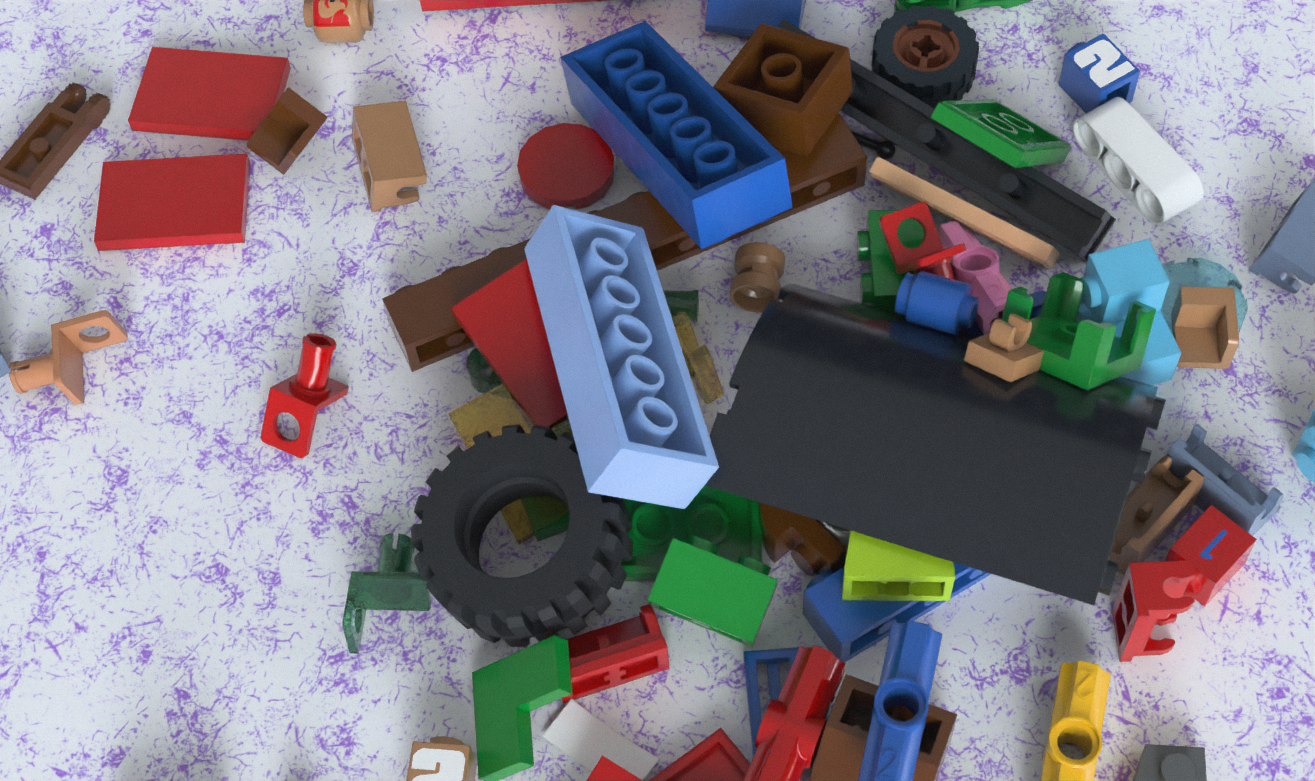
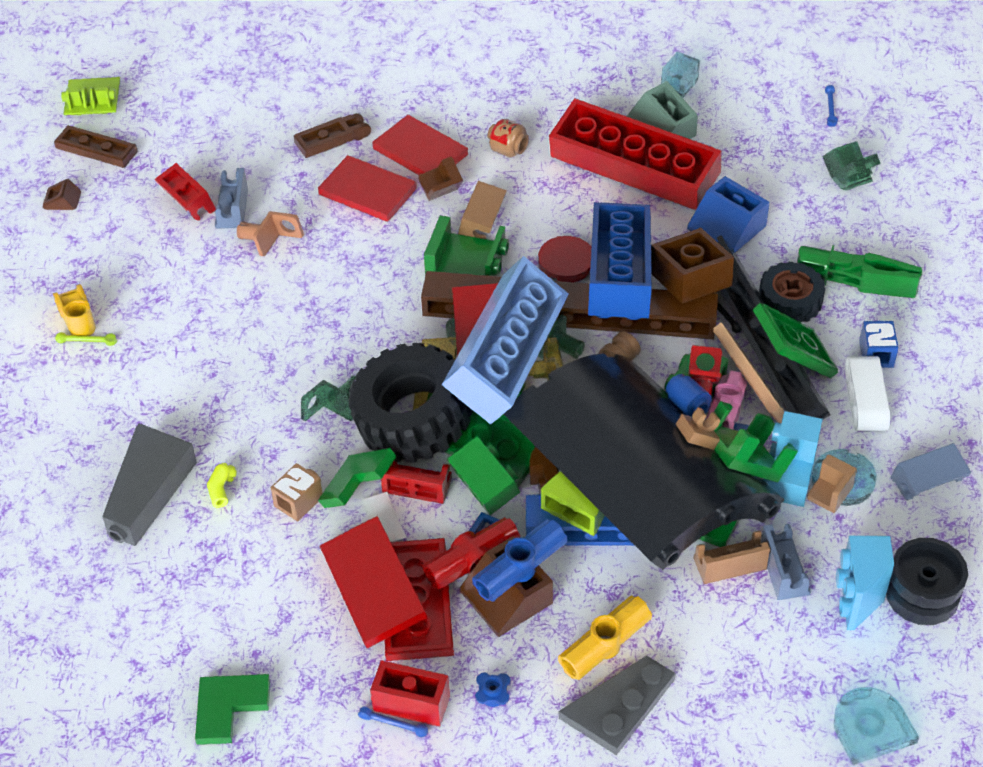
camera: 30 degrees right, 10 degrees down
(303, 395) = (361, 297): red bracket -> none
(411, 237) = (464, 253): none -> green panel
(1148, 597) = (692, 589): red hinge -> none
(1217, 551) = (747, 590): red brick -> none

